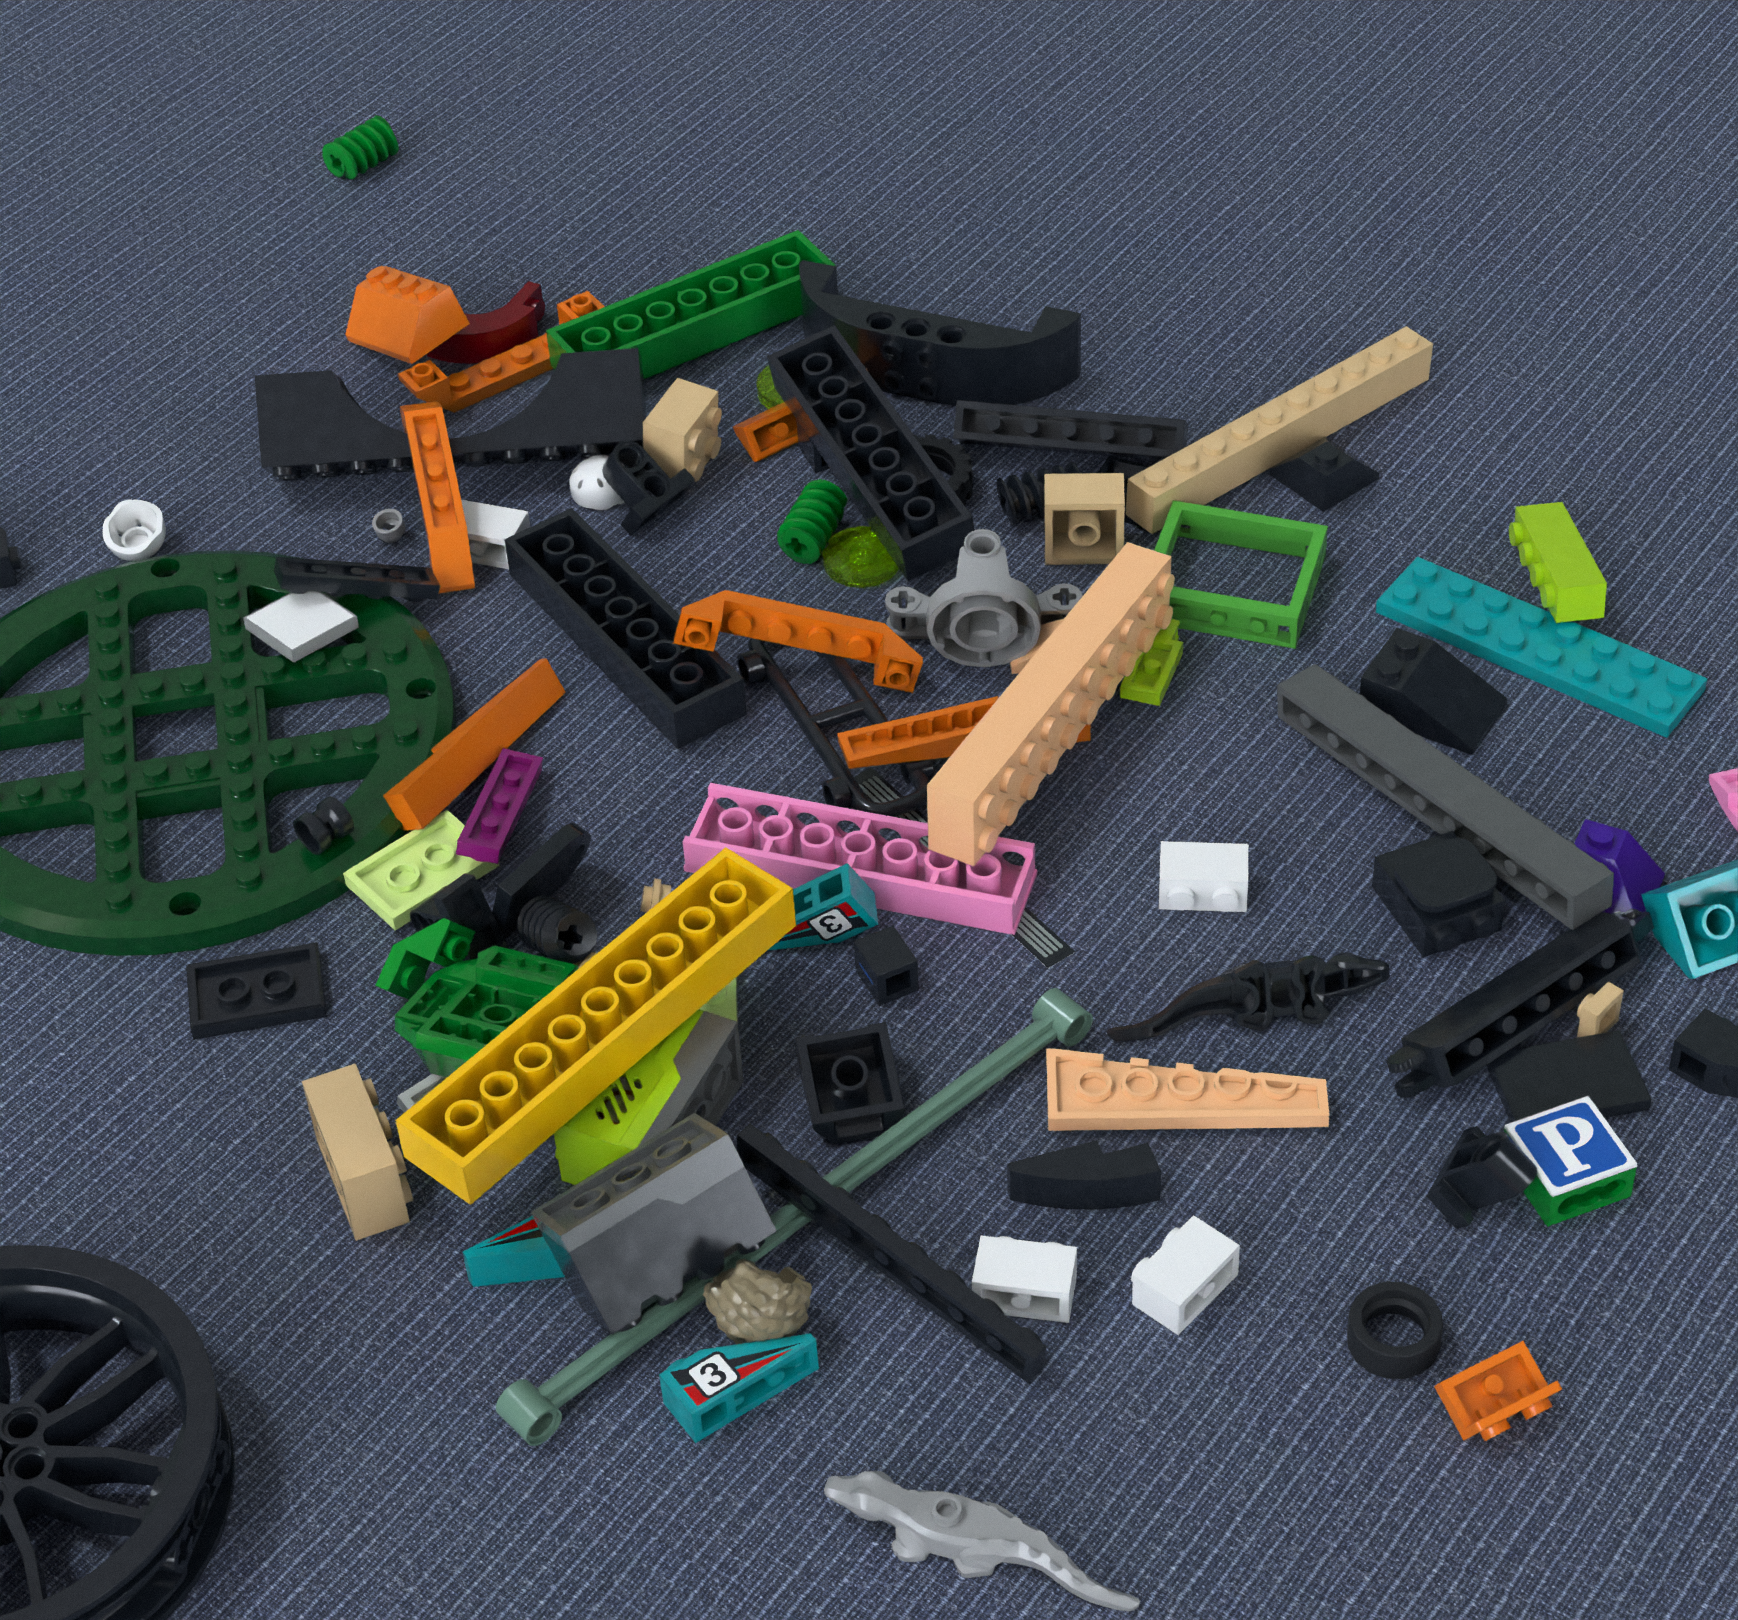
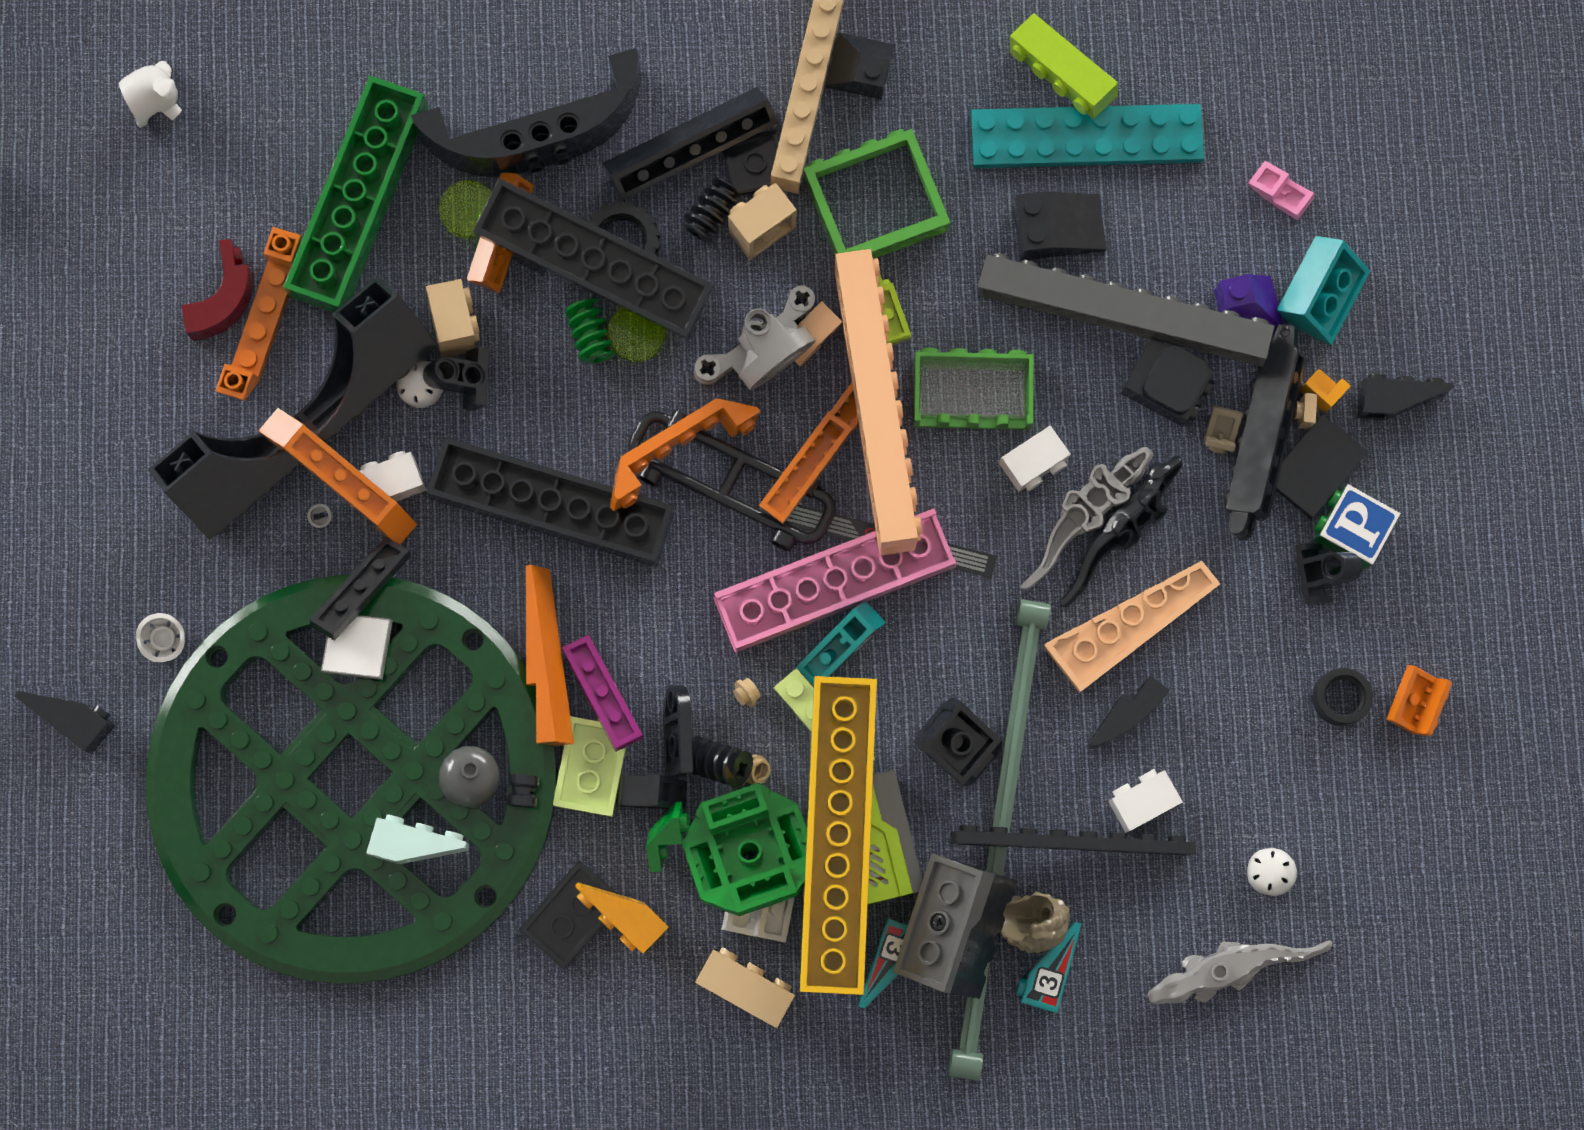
camera: 45 degrees left, 35 degrees up
(158, 797) = (406, 844): none -> light aqua slope
(284, 781) = (469, 777): none -> dark grey cylinder
(310, 1018) = (630, 916): none -> light orange slope
(403, 314) = (170, 338): orange slope -> none
(584, 162) = (150, 92): none -> white piece
(886, 965) = (911, 646): black brick -> none
(1123, 1450) = (1271, 871): none -> white helmet
(1185, 1274) = (1220, 739): white brick -> none
(1186, 778) = (973, 389): none -> clear window
(1223, 947) = (1085, 508): none -> light grey animal
(1468, 970) = (1222, 429): none -> dark tan bracket
(1645, 1013) = (1326, 389): none -> light orange panel

